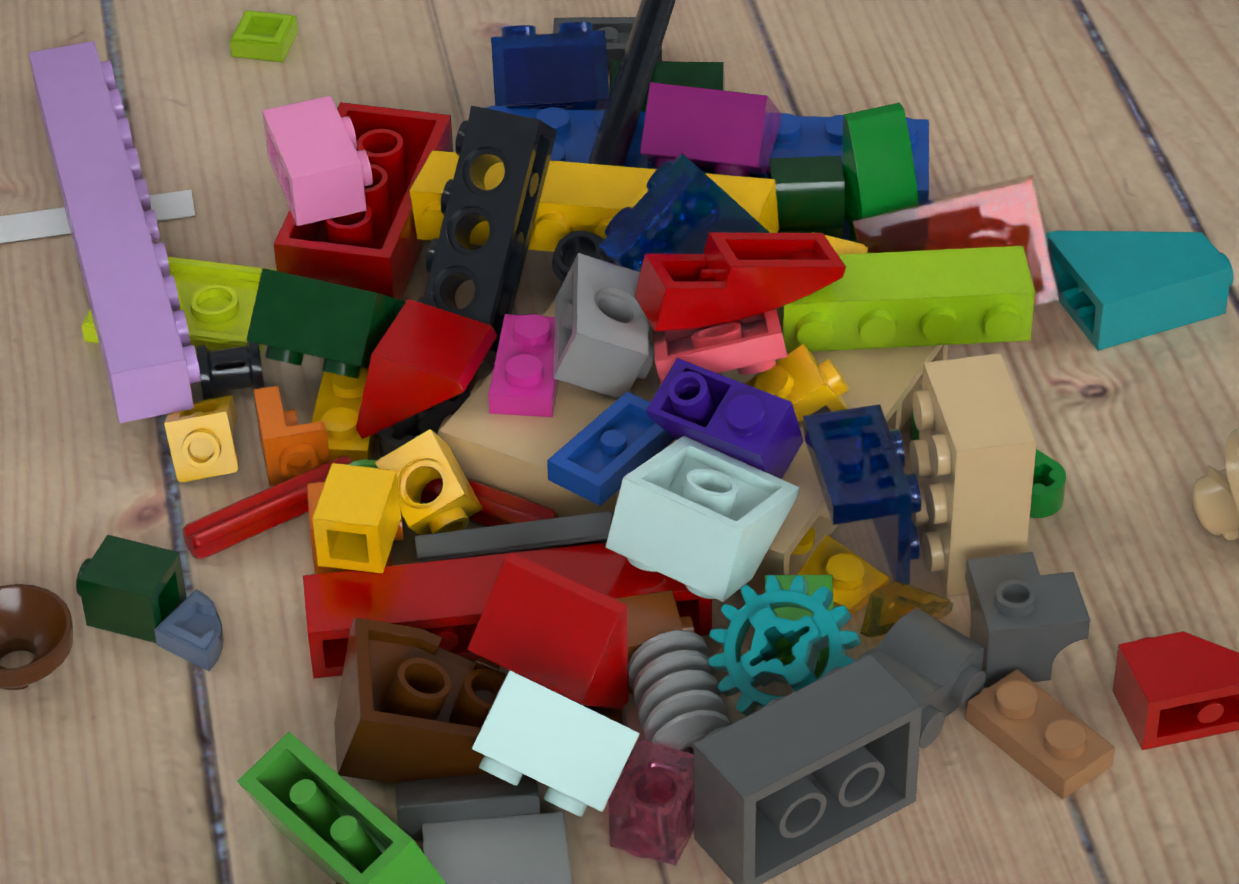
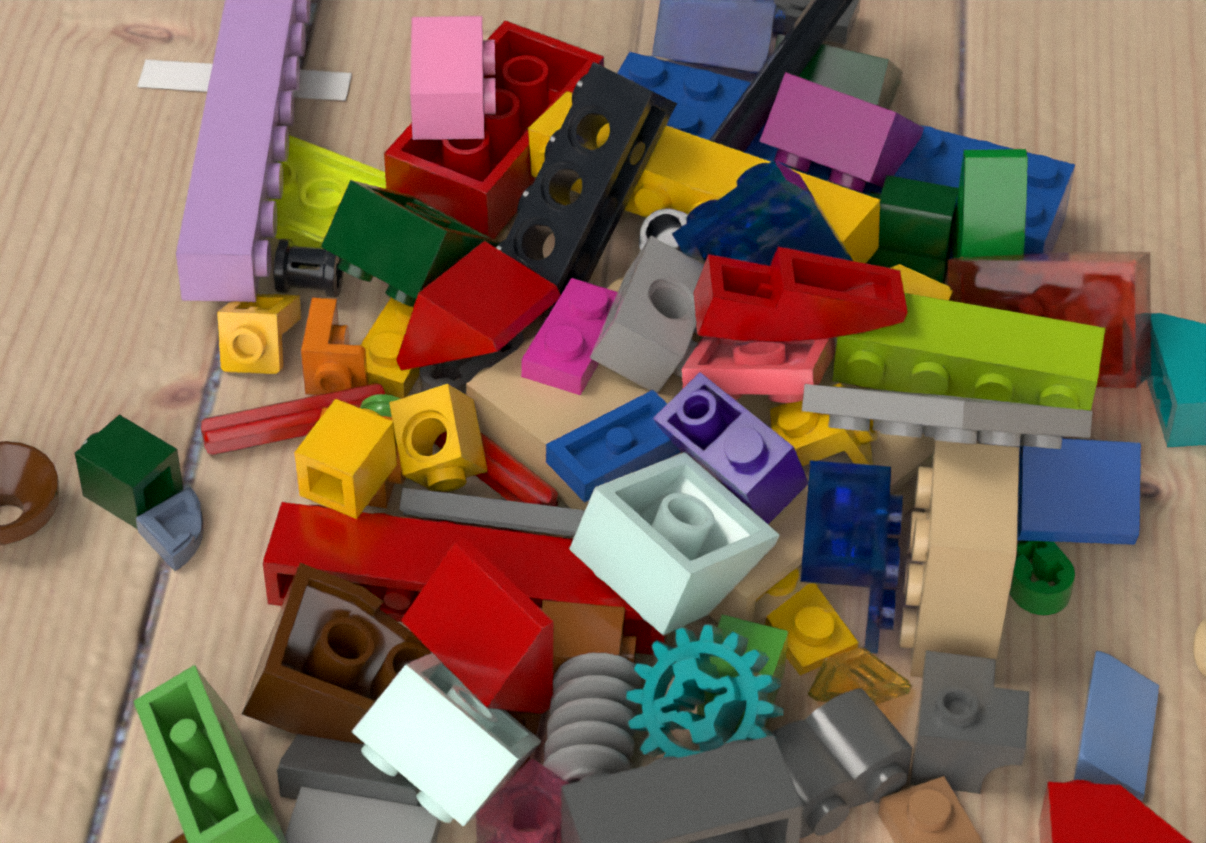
camera: 15 degrees right, 5 degrees up
(908, 344) = (947, 416): none -> light grey plate
(1058, 393) = (1080, 492): none -> blue slope
(1148, 587) = (1117, 726): none -> medium blue slope

